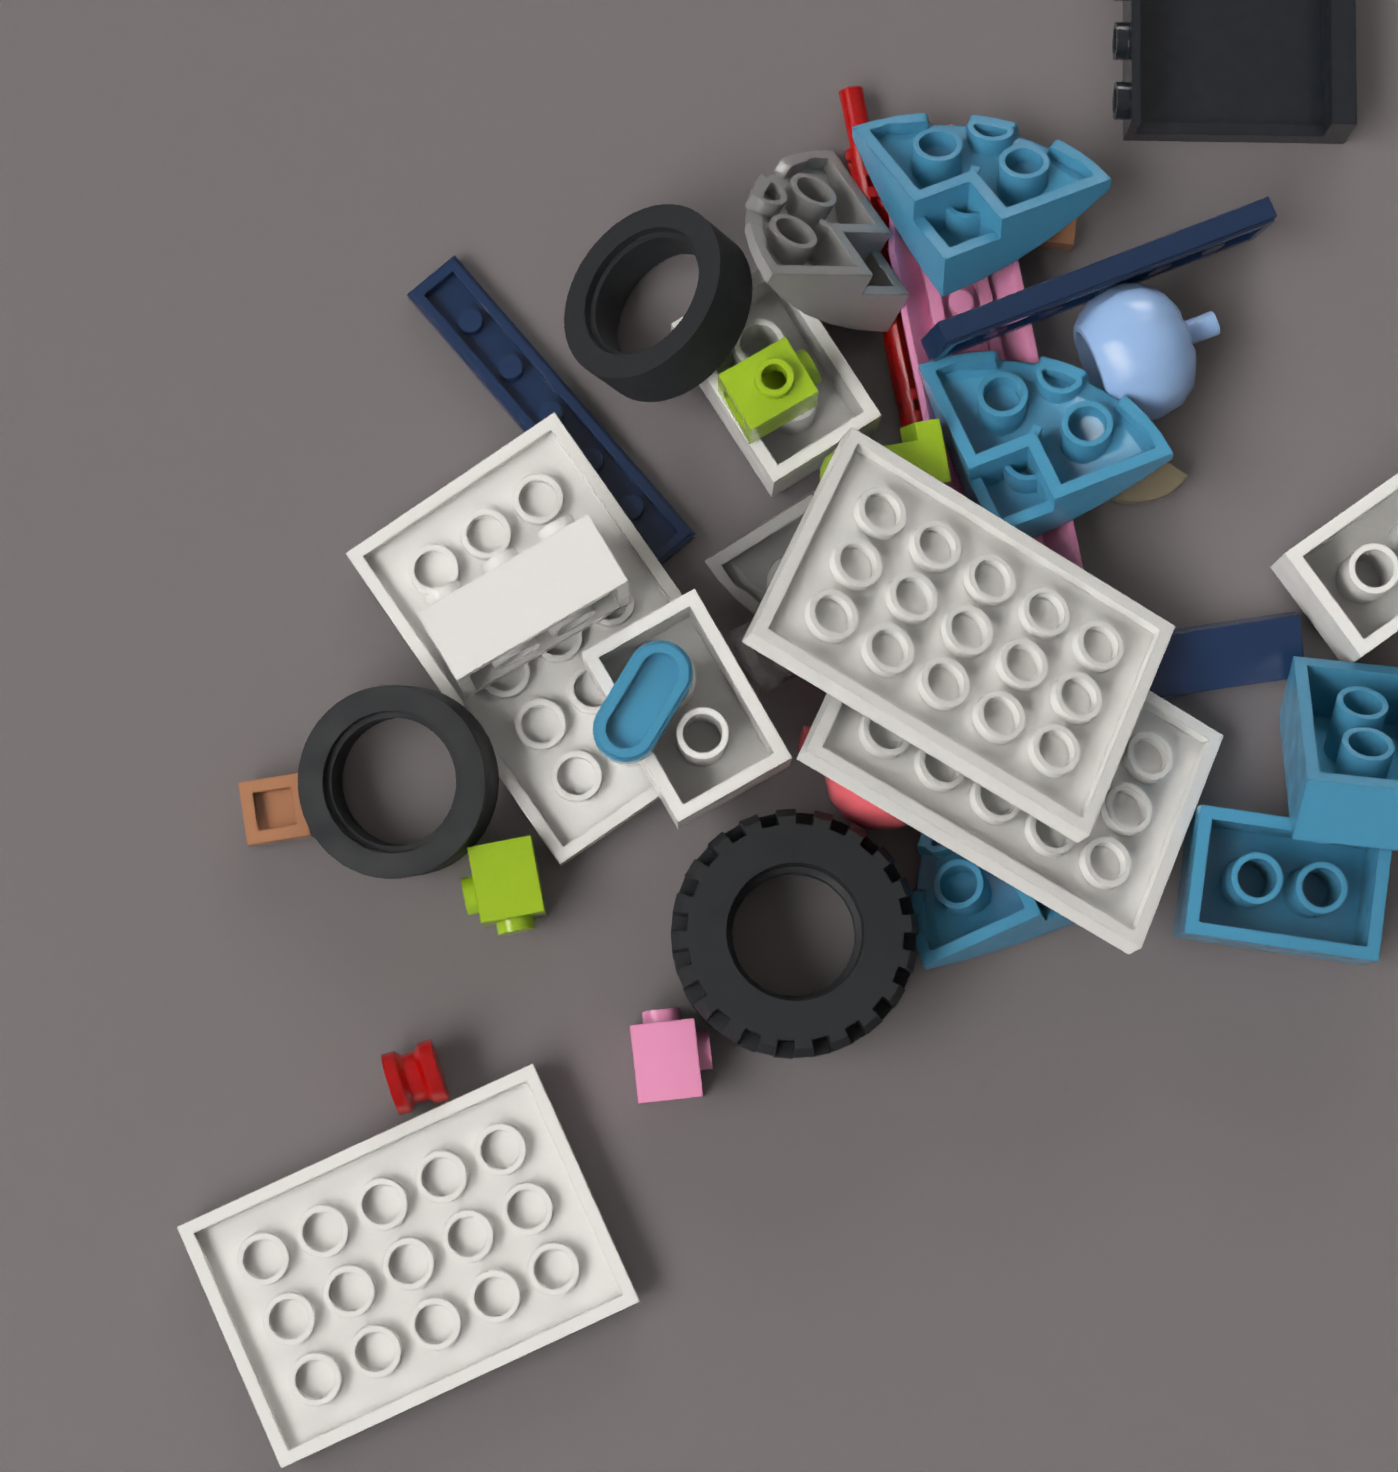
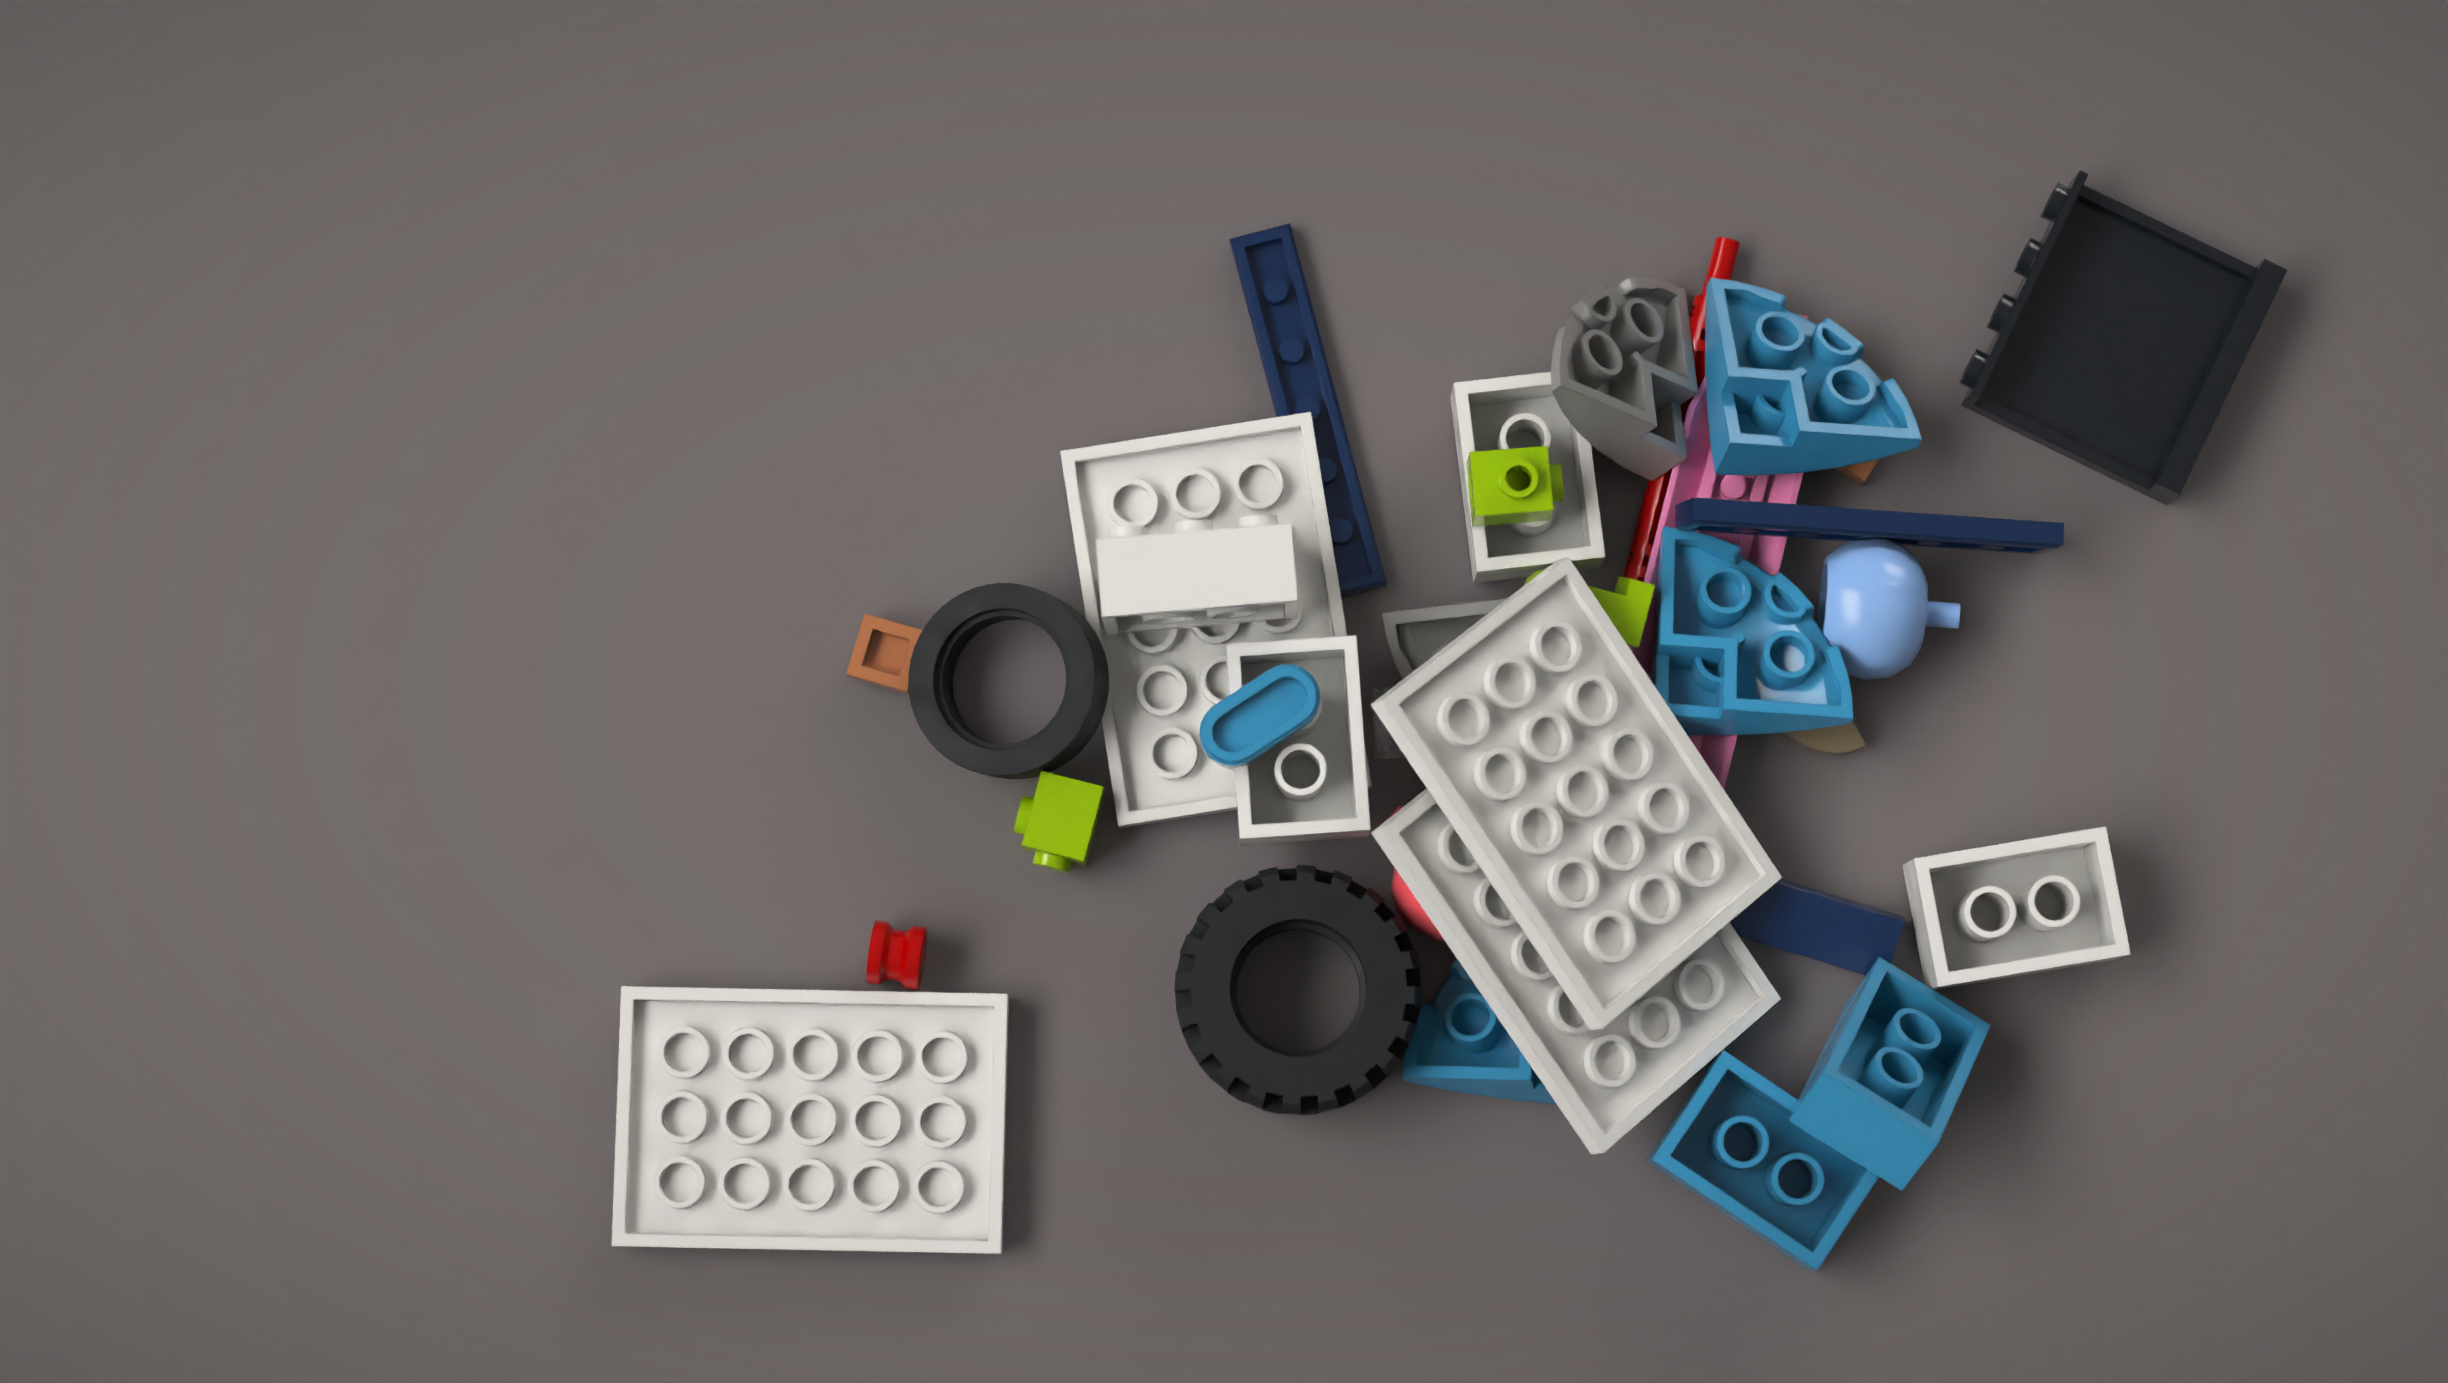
camera: 30 degrees right, 0 degrees up
(669, 1056) = (1133, 1047): bright pink brick -> none
(701, 337) = (1480, 405): black tyre -> none

